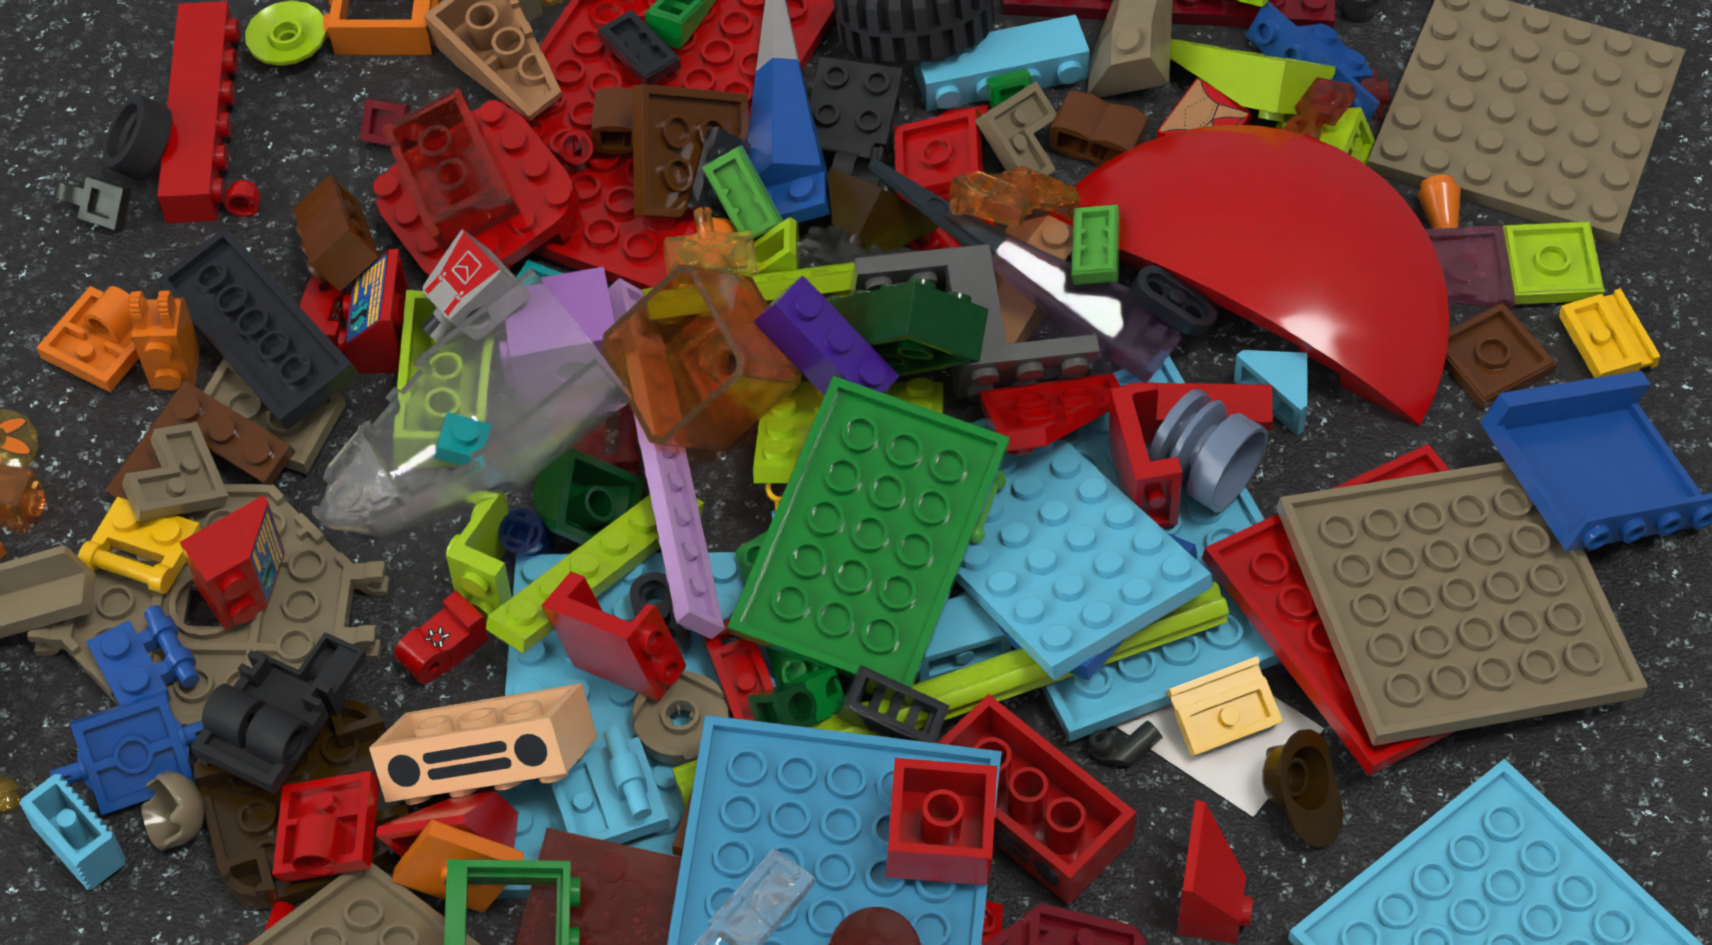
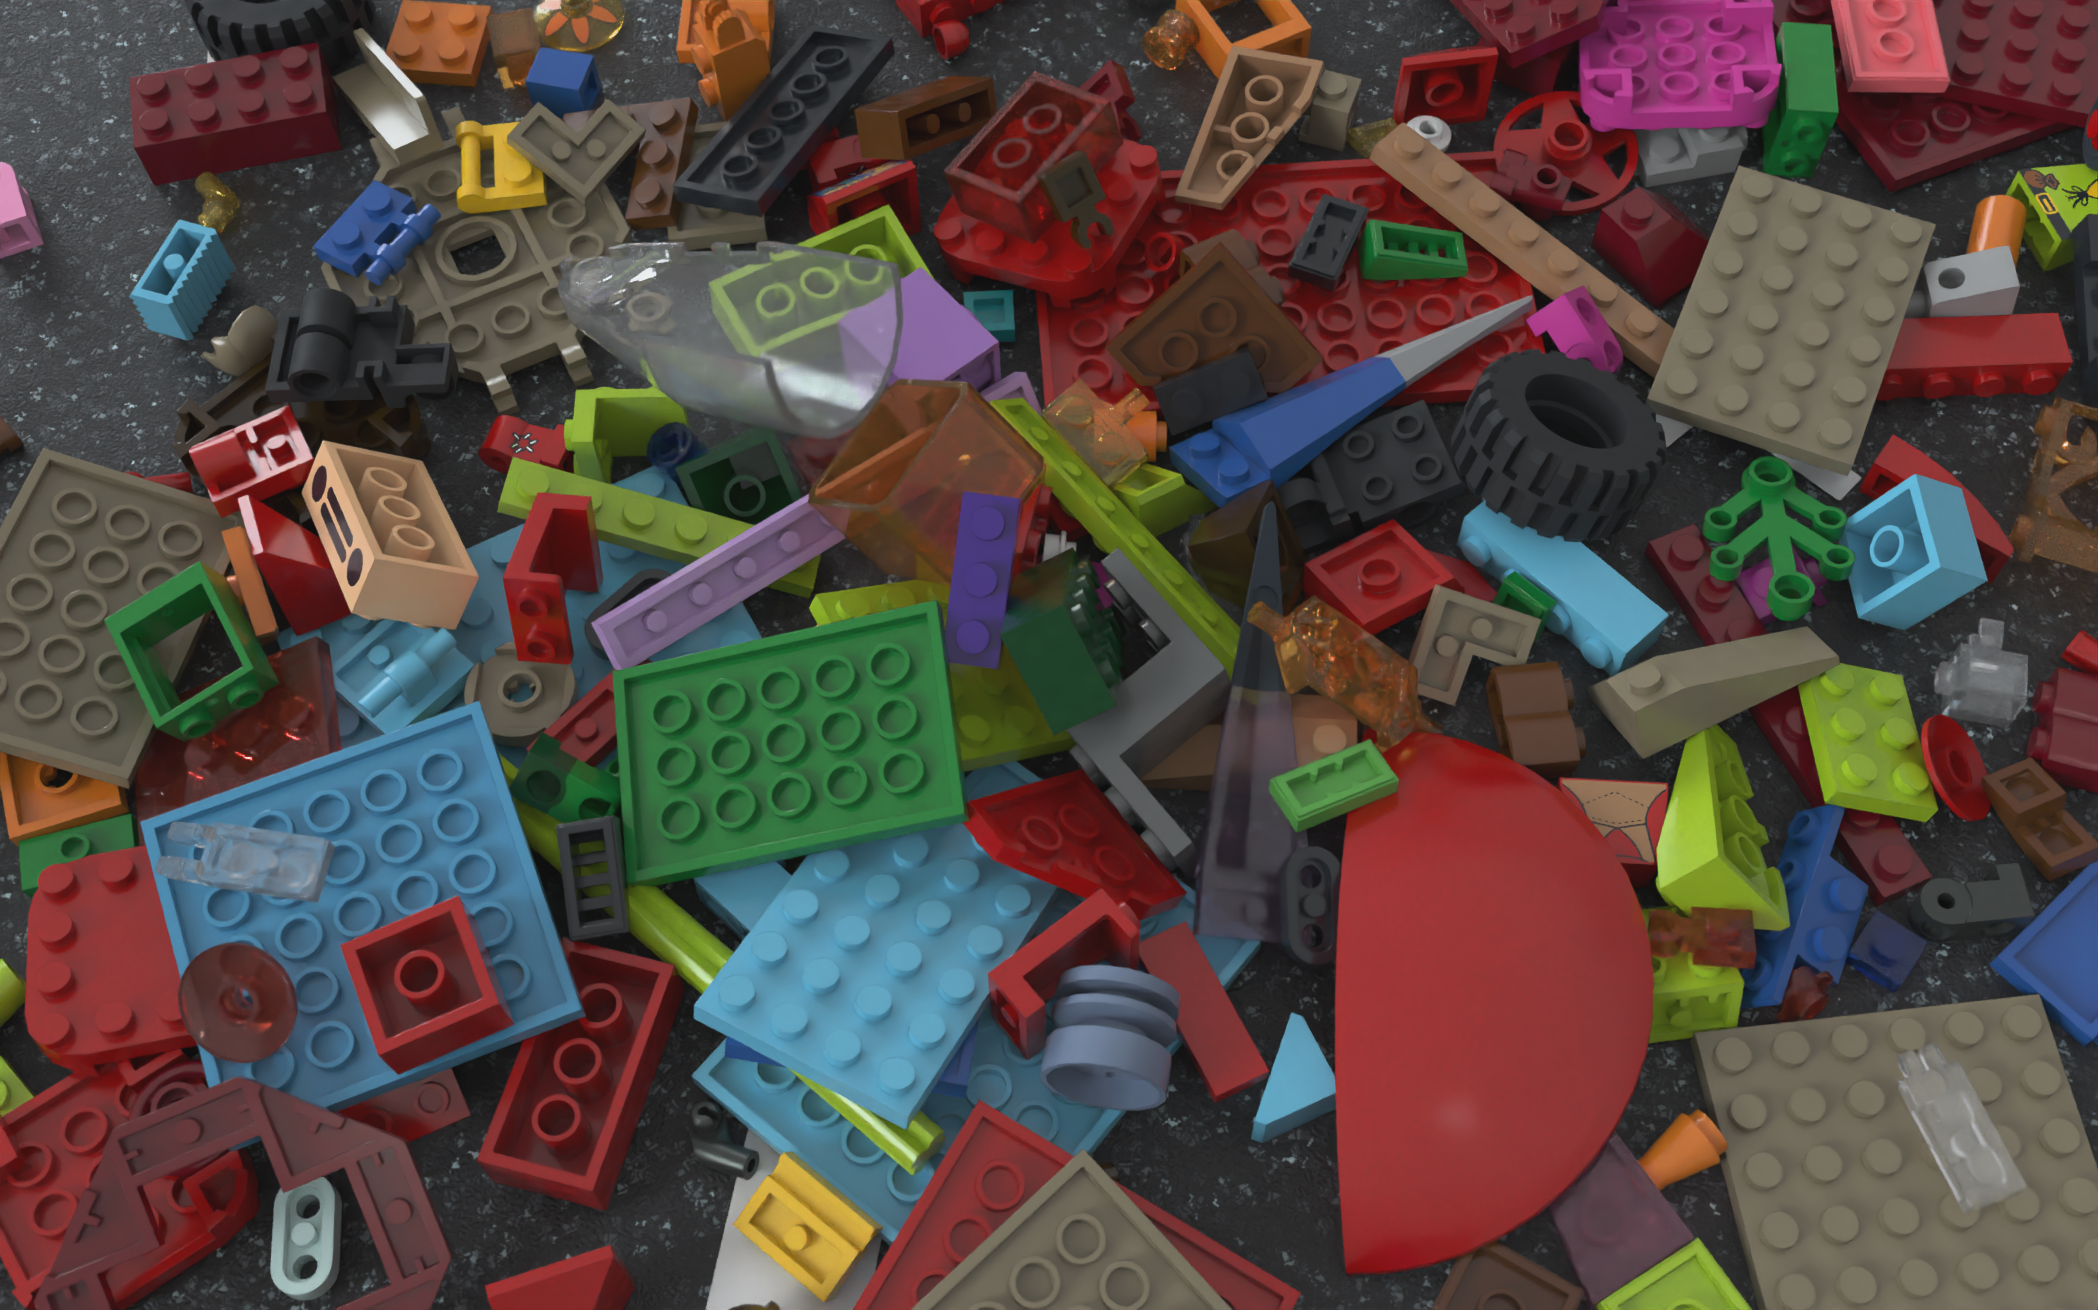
camera: 60 degrees right, 5 degrees up
(75, 475) = (563, 81): none -> blue panel
(129, 748) = (276, 264): blue plate -> none
(236, 562) = (492, 237): red slope -> none
(364, 59) = (1171, 39): none -> clear orange wheel
(460, 438) = (724, 330): teal plate -> none
(463, 284) = (908, 233): torso -> none
(516, 154) = (1072, 194): none -> dark brown plate
(742, 192) = (1186, 419): bright green plate -> none
(999, 483) = (949, 838): bright green hinge -> none
(1369, 39) = (1885, 951): none -> clear blue plate
(1507, 62) = (1957, 1129): none -> clear hinge

